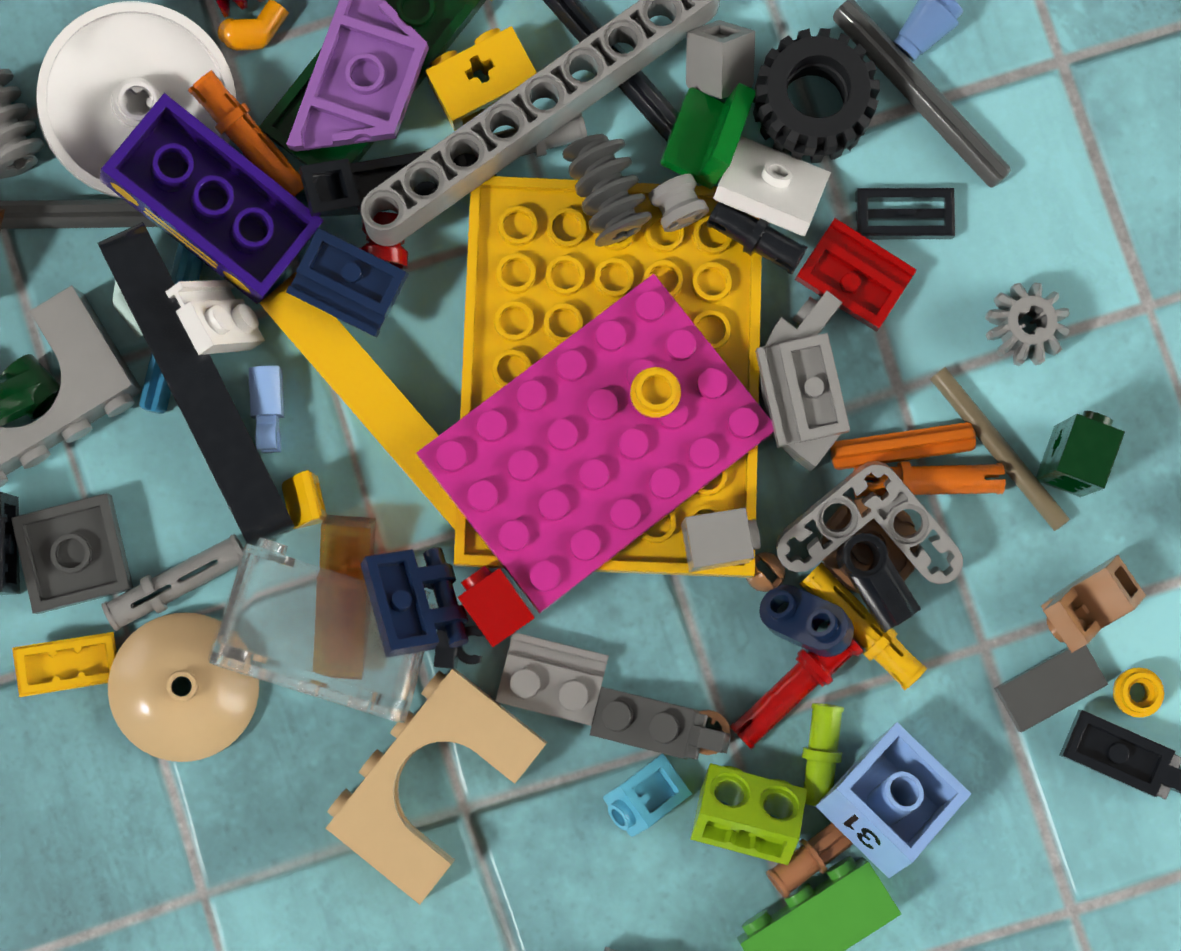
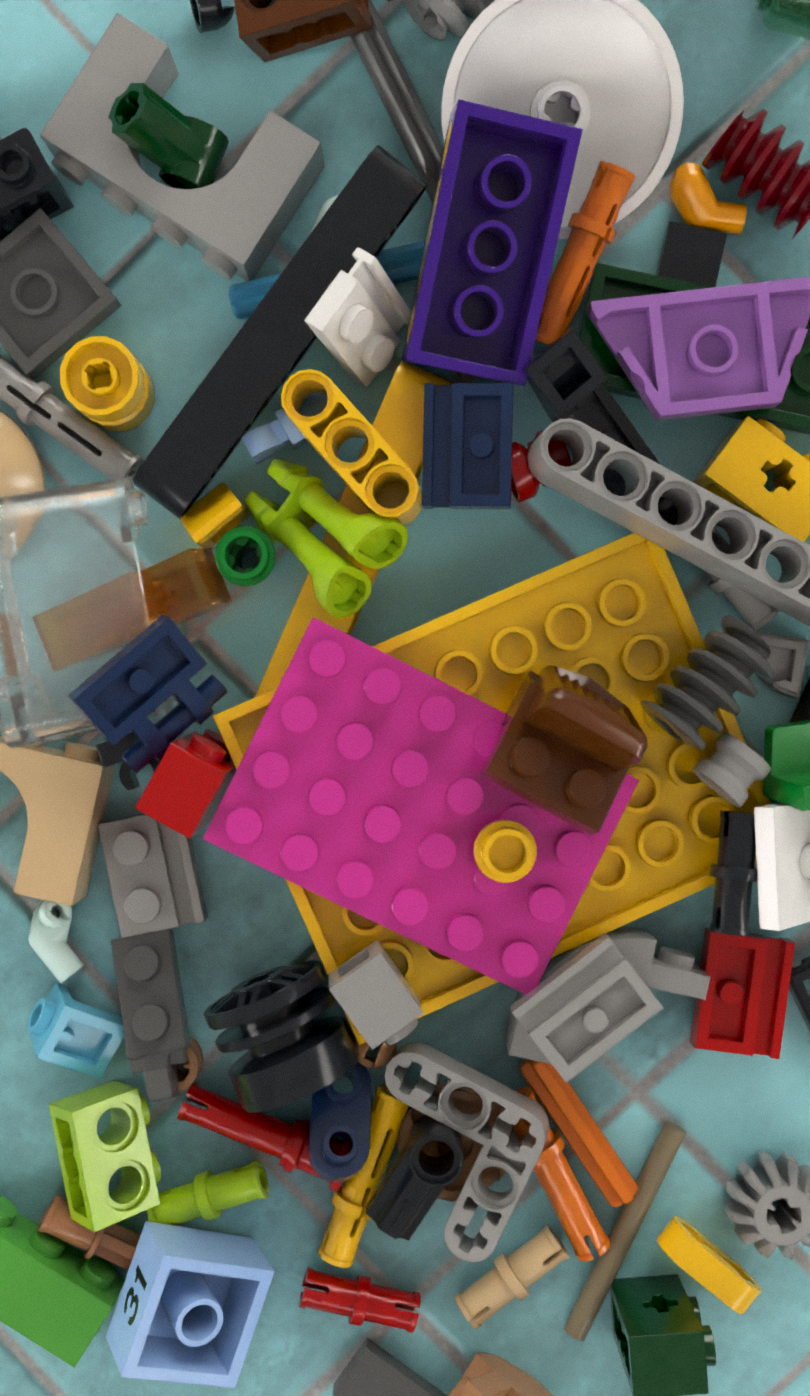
camera: 65 degrees right, 5 degrees up
(168, 529) = (107, 384): none -> yellow wheel
(284, 363) = (343, 421): none -> yellow beam
(286, 55) = (691, 254): none -> black tile
(336, 479) = (235, 546): none -> green cone
(379, 383) = (367, 537): none -> lime piece
(562, 781) = (49, 938): none -> light aqua arm
(600, 312) = (566, 747): none -> reddish brown piece
(625, 126) = (787, 662): none -> light grey tile
(719, 630) = (287, 1047): none -> black wheel
(957, 676) = (359, 1300): none -> red pin
(993, 550) = (511, 1277): none -> tan pin
(1051, 395) = (708, 1265): none -> yellow beam

